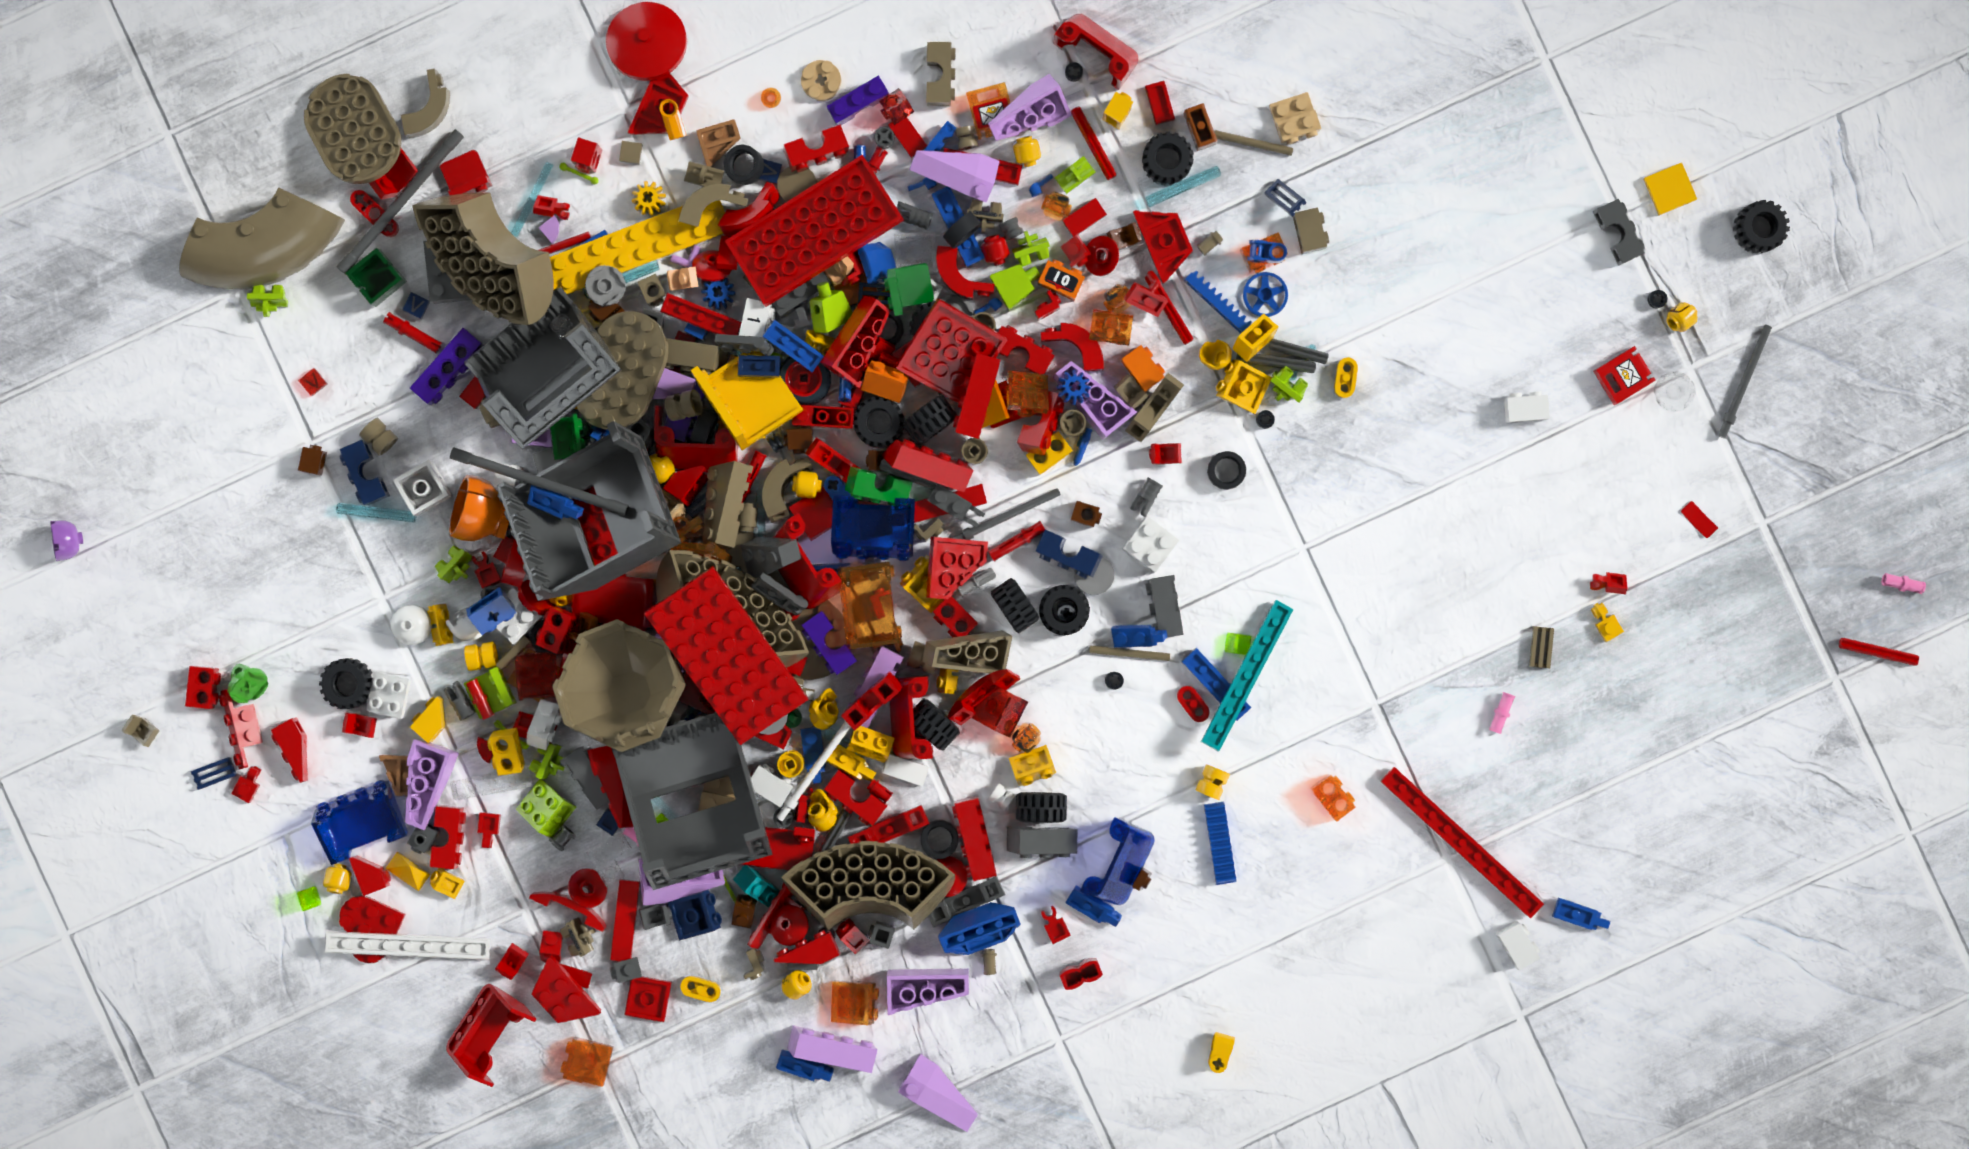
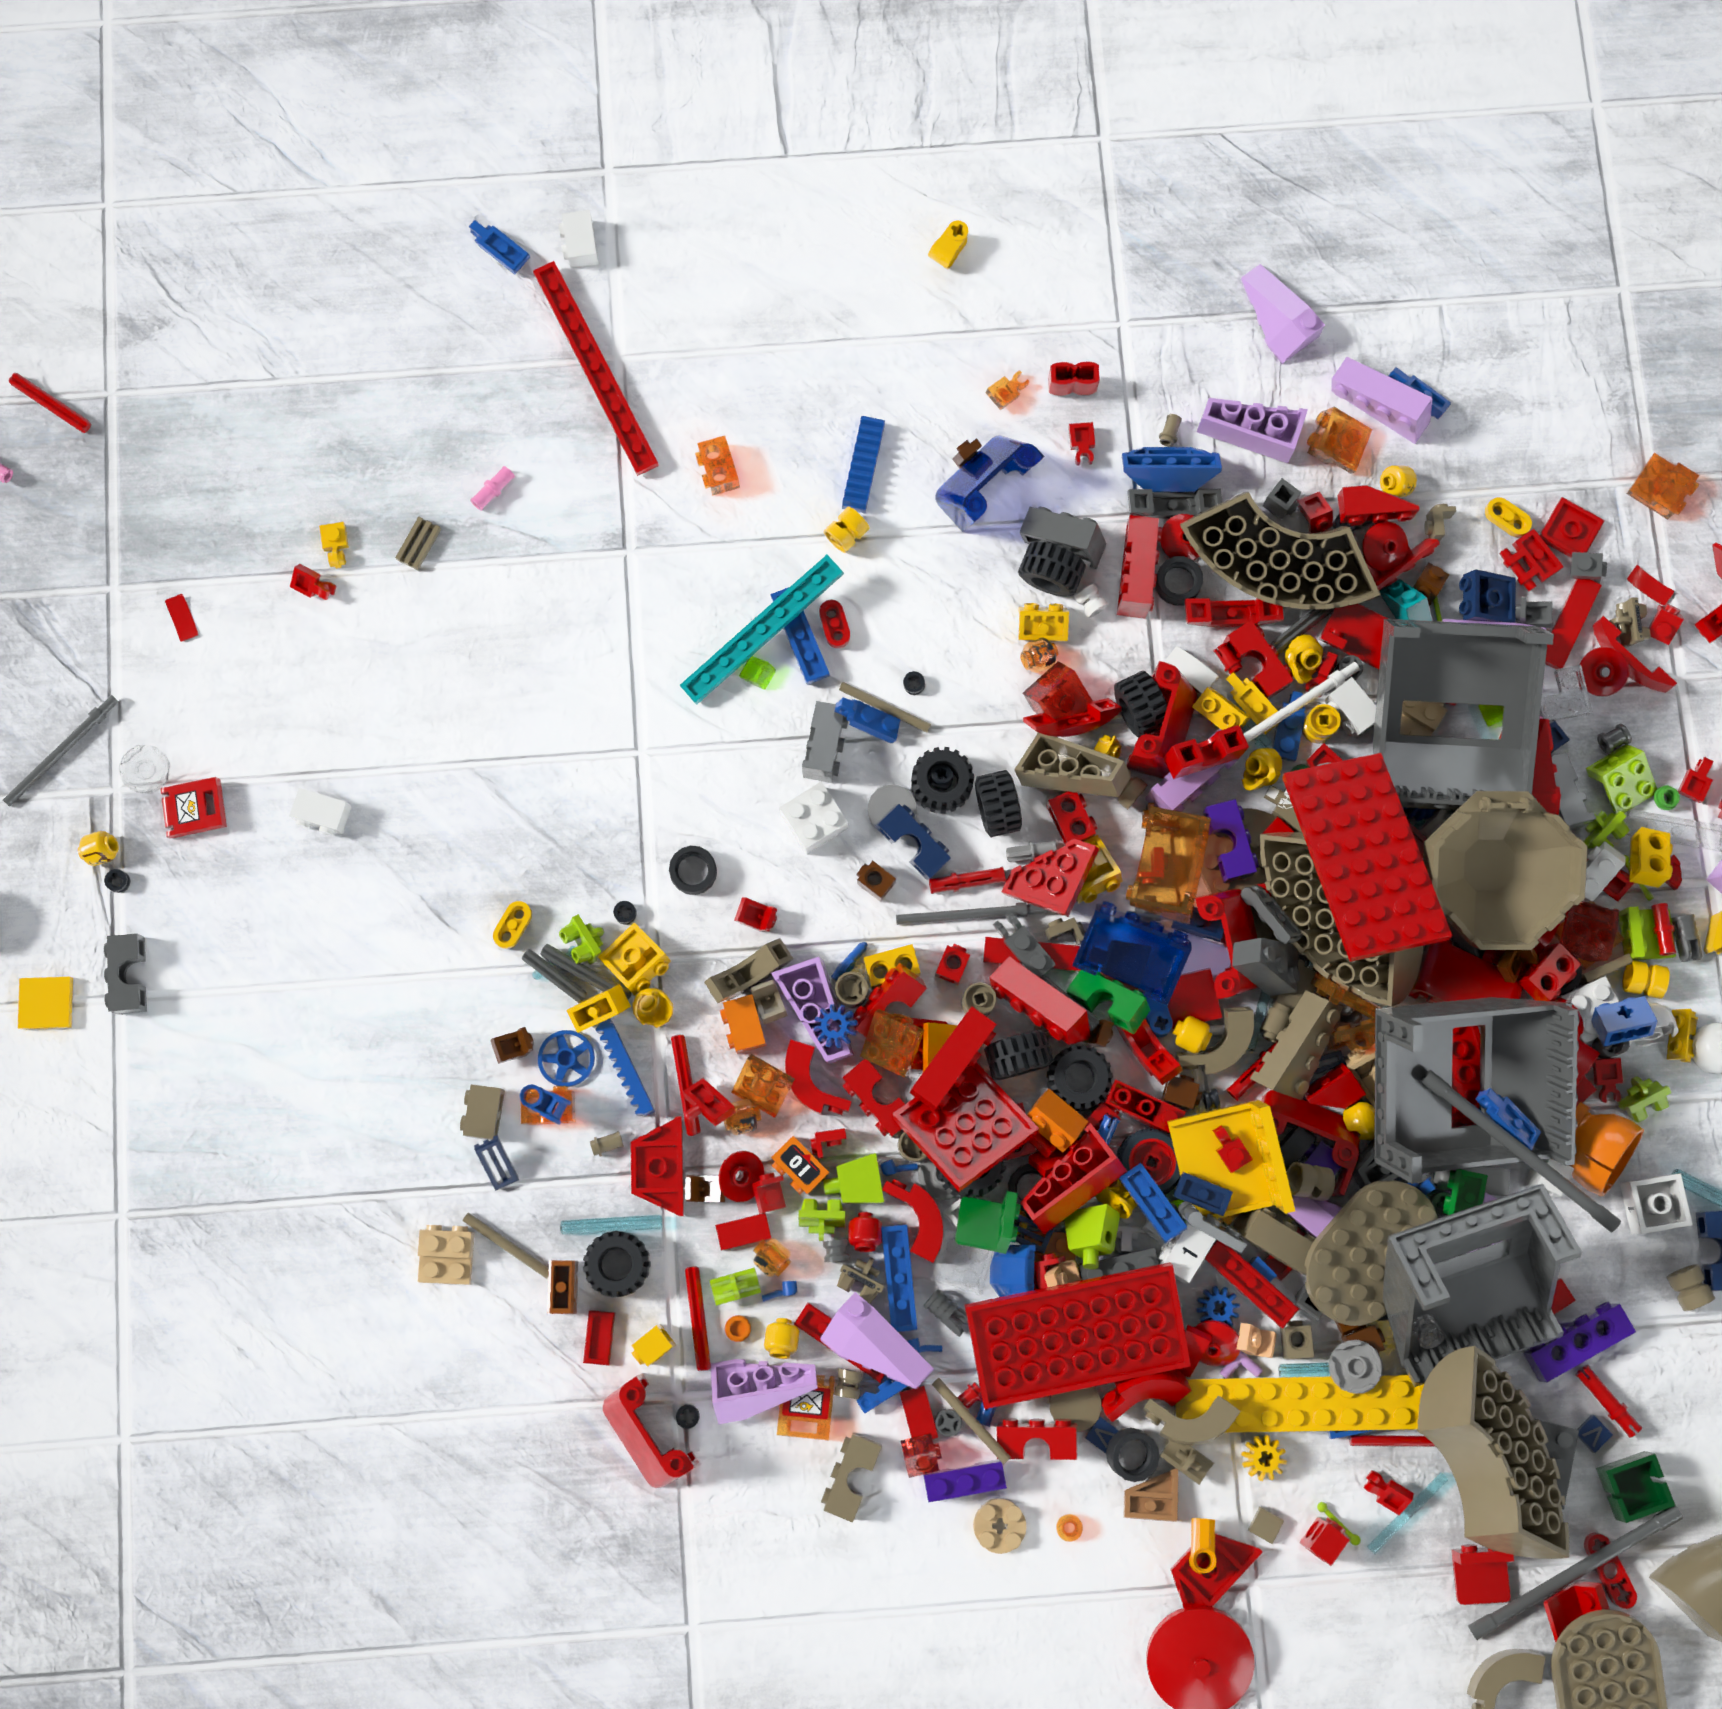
camera: 160 degrees left, 10 degrees down
(502, 806) = (1672, 797): none -> bright green plate
(551, 229) = (1396, 1465): lavender tile -> none
(562, 994) = (1669, 566): red wing -> none
(666, 964) = (1536, 555): none -> red plate
(748, 405) = (1232, 1151): none -> red plate
(868, 143) = (971, 1421): none -> dark tan bar
(962, 230) = (897, 1267): black tyre -> none
(1004, 463) = (948, 974): none -> red brick
(1061, 147) = (737, 1328): none -> orange tile
(1093, 907) = (1020, 432): blue hinge -> none
(1130, 944) = (1005, 391): none -> clear orange plate
(1149, 492) = (793, 878): dark grey hinge -> none
(1308, 287) = (512, 1045): none -> reddish brown bracket

